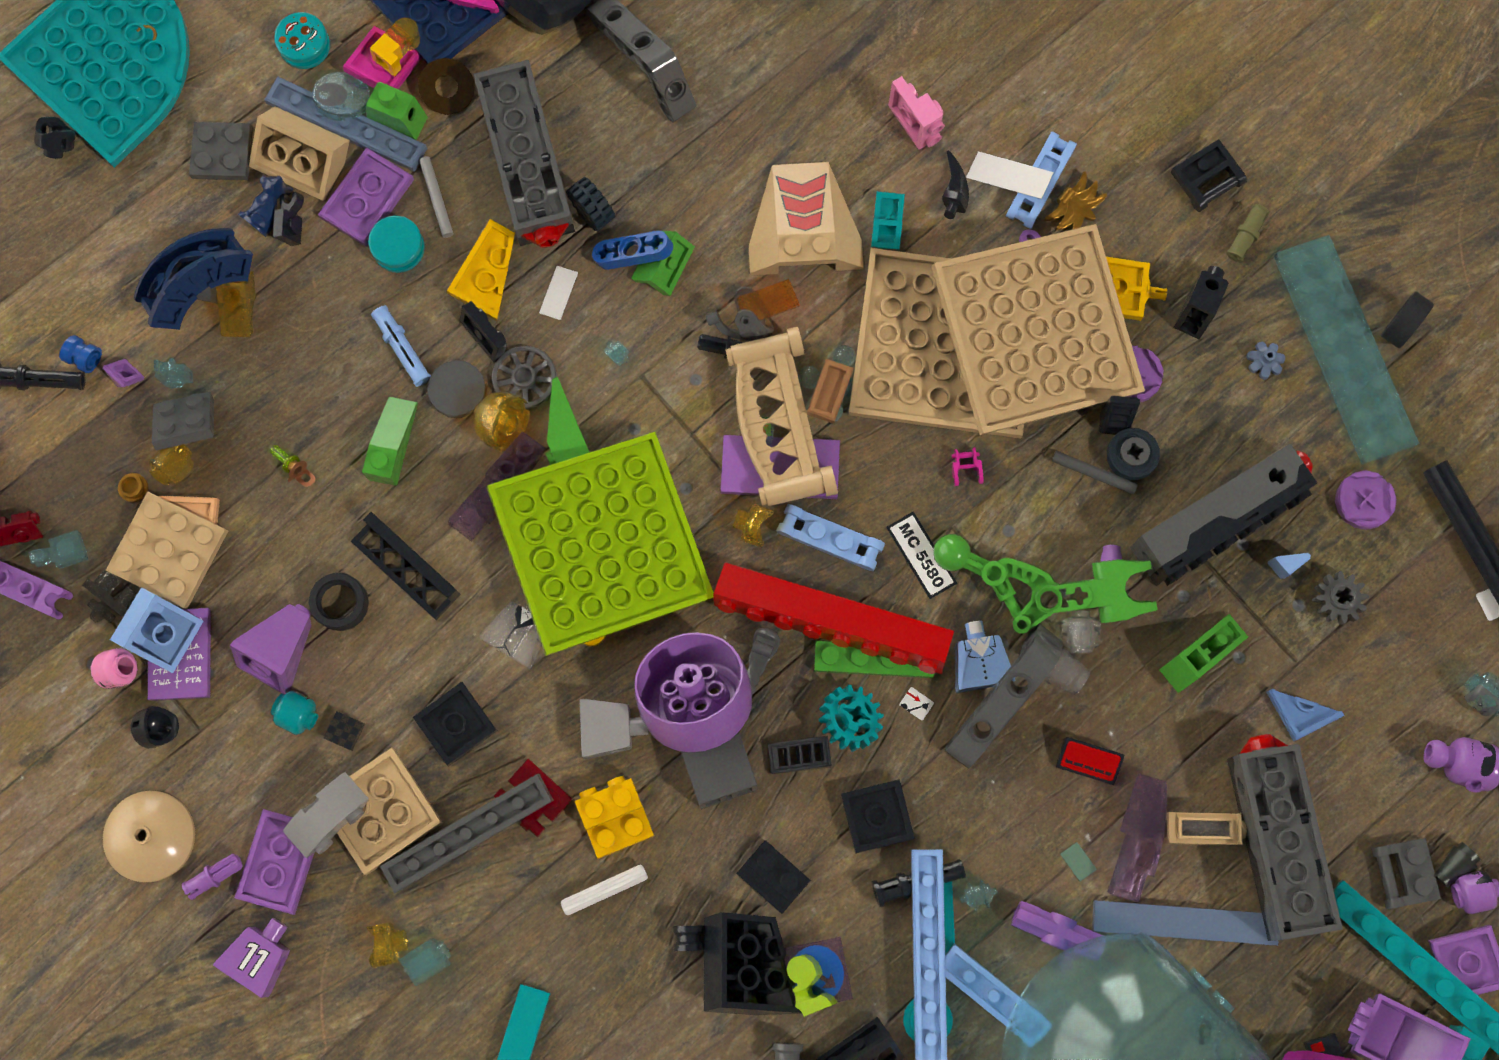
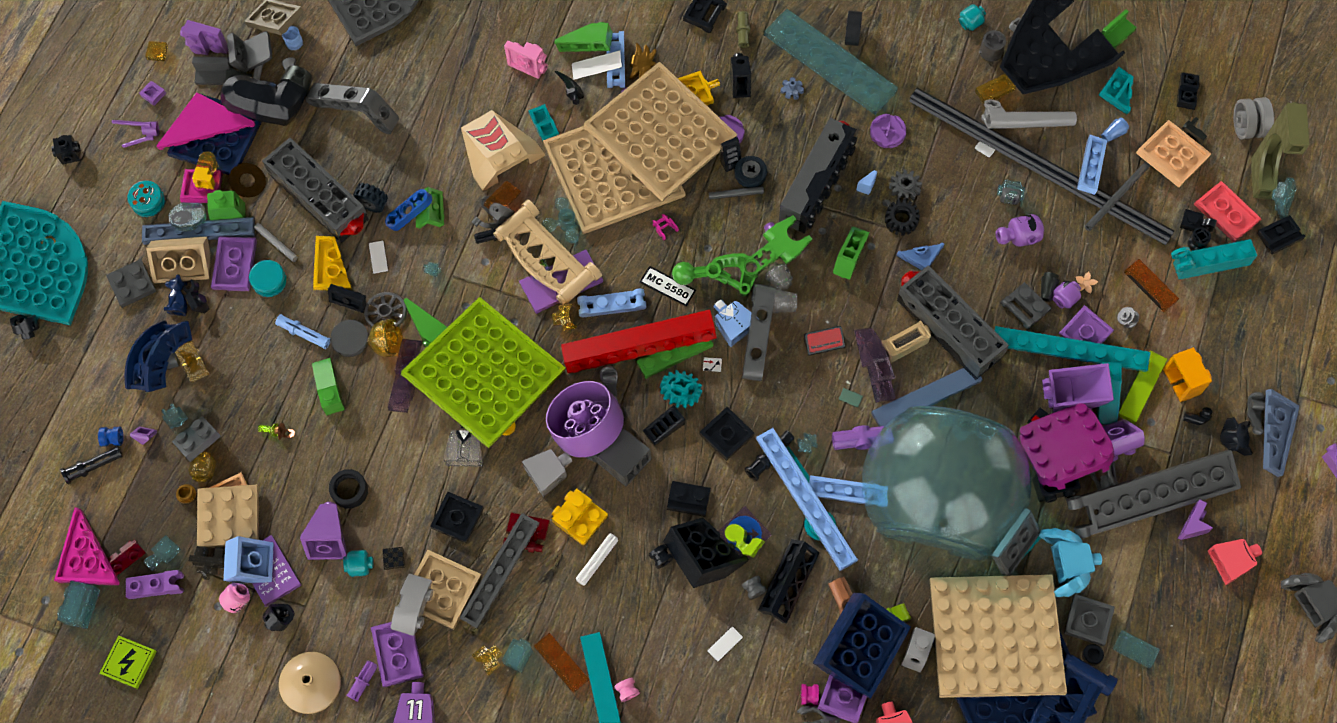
camera: 30 degrees left, 10 degrees down
(409, 555) = (379, 441): black fence -> none
(477, 1004) = (561, 663): none -> clear orange plate
(830, 391) = (565, 223): medium nougat tile -> none
(1019, 129) = (588, 38): none -> bright green slope
(1320, 630) = (906, 208): none -> black tyre

